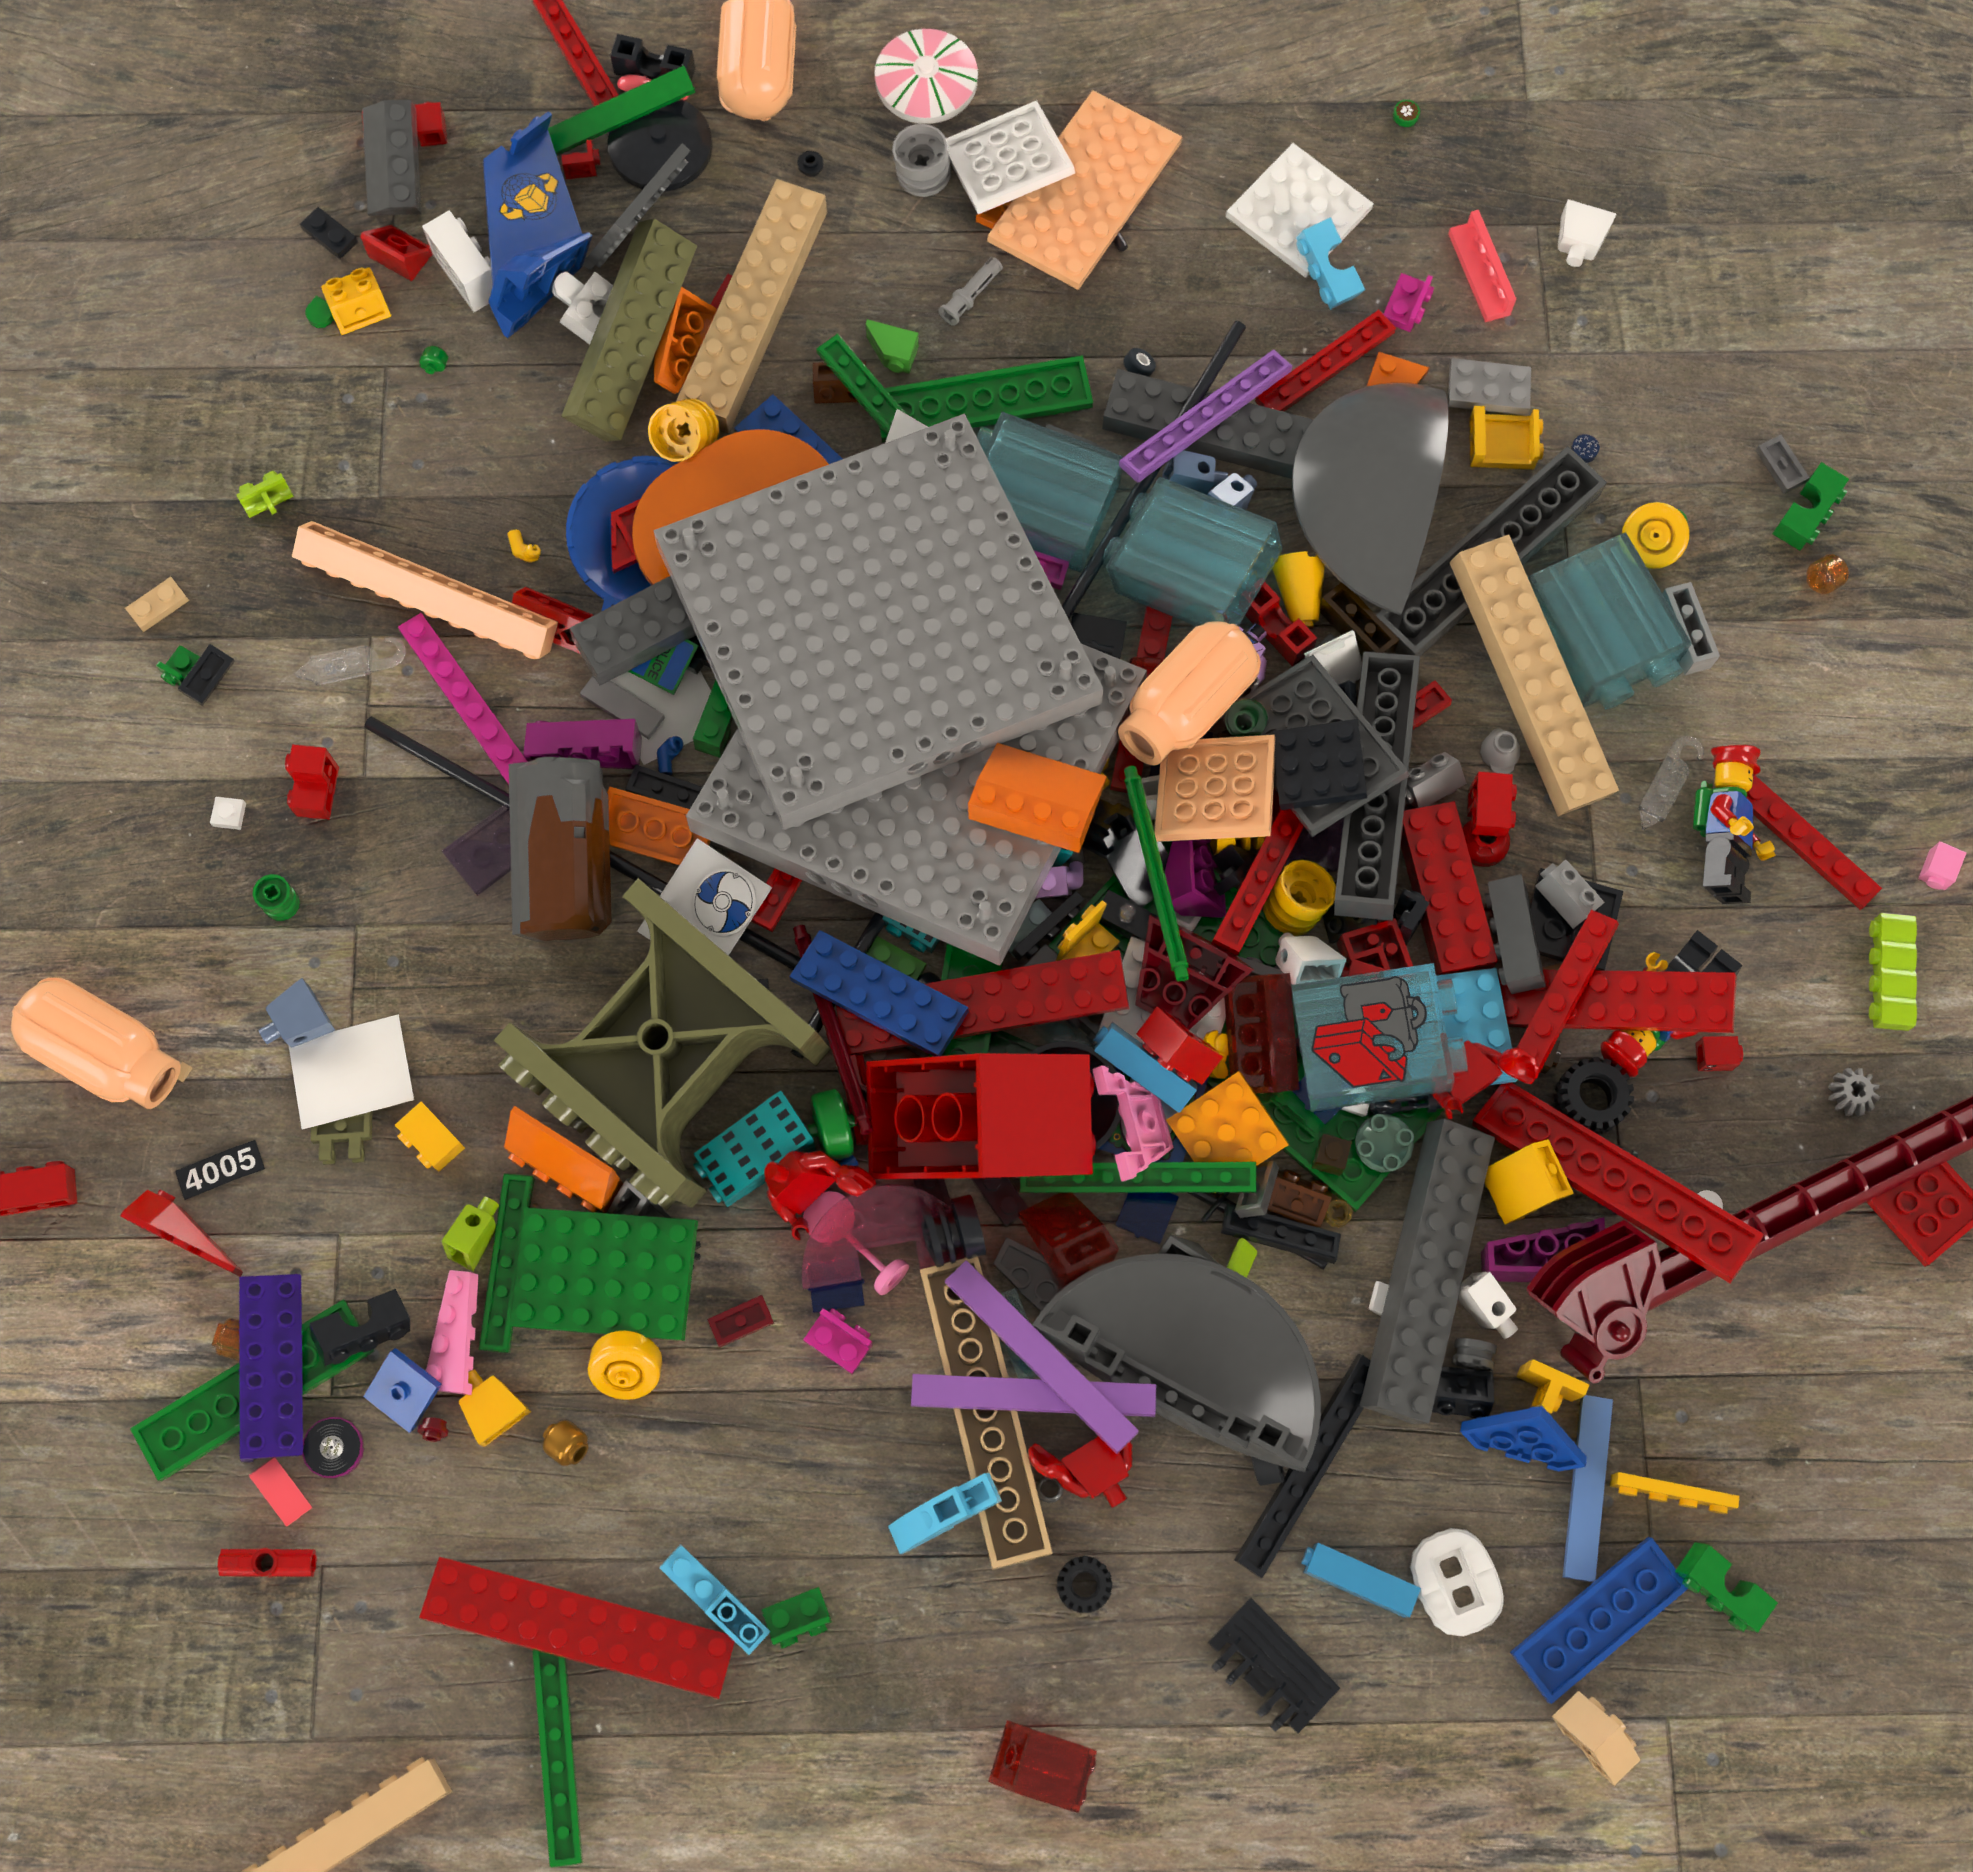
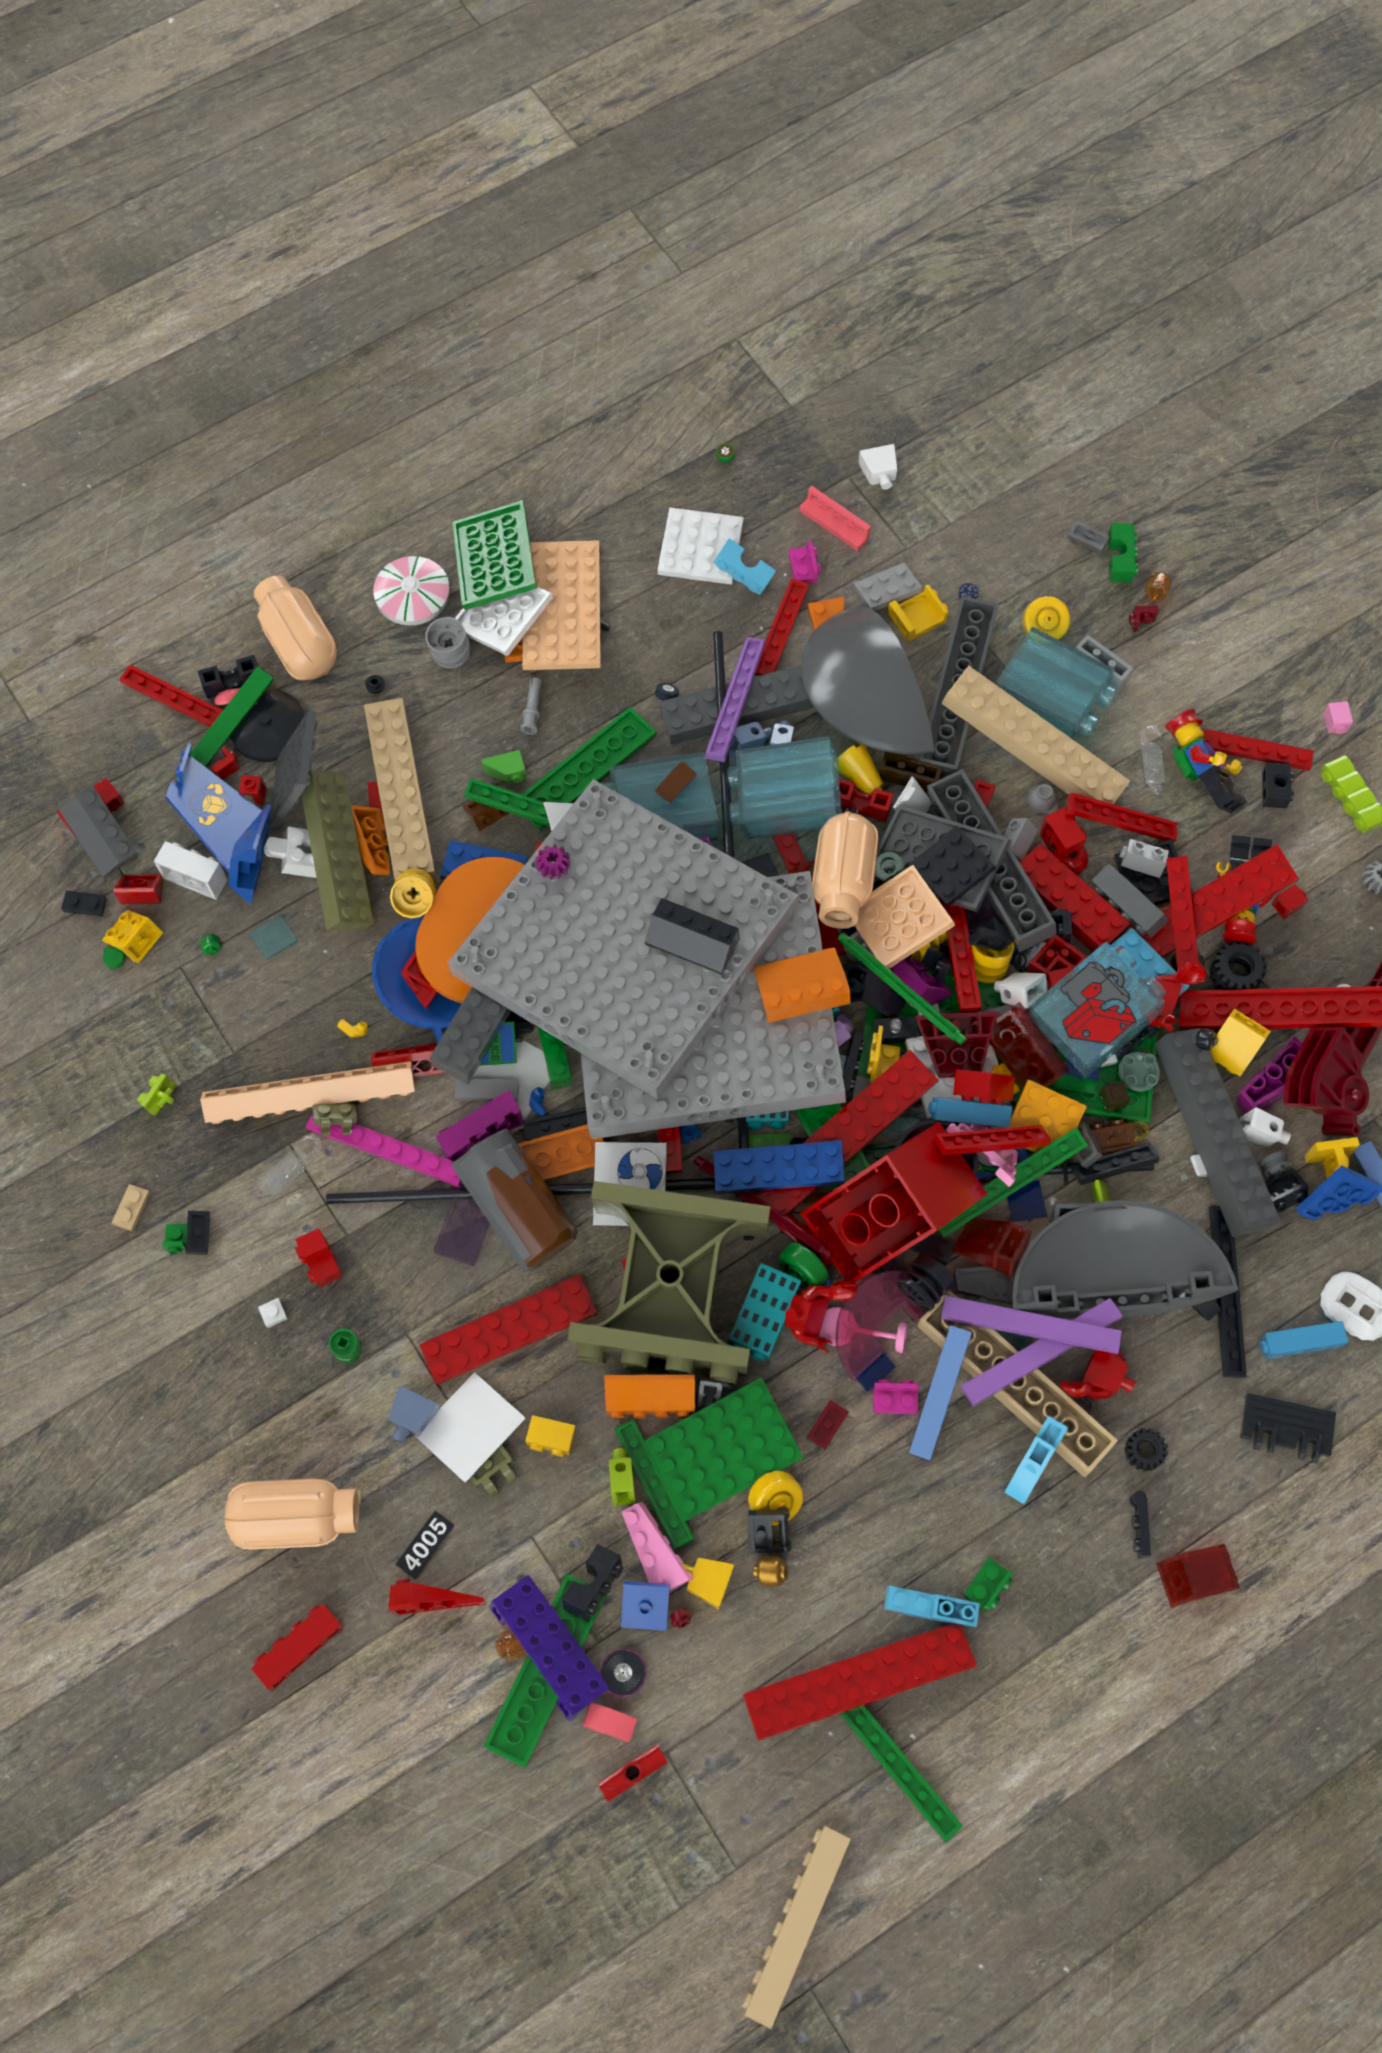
camera: 30 degrees left, 5 degrees down
(434, 631) = (334, 1114): none -> olive plate
(465, 990) = (507, 1329): none -> red plate
(506, 392) = (273, 937): none -> clear light blue piece
(583, 1392) = (762, 1532): none -> black plate
(594, 206) = (254, 787): none -> red bracket
(808, 897) = (686, 1137): none -> blue plate
(835, 481) = (545, 864): none -> magenta gear
(889, 1366) = (940, 1392): none -> medium blue tile
(942, 663) = (692, 936): none -> slope
(1017, 1662) = (1140, 1522): none -> black plate
(1043, 85) = (494, 555): none -> plate
(1063, 473) = (675, 782): none -> reddish brown slope
(1138, 1114) = (992, 1140): none -> red plate
(1310, 875) = (991, 936): none -> black slope
(1490, 1155) = (1206, 1039): none -> black piece
(1575, 828) = (1121, 817): none -> red plate
(1783, 597) = (1142, 614): none -> dark red bracket
(1792, 915) = (1272, 794): none -> black brick

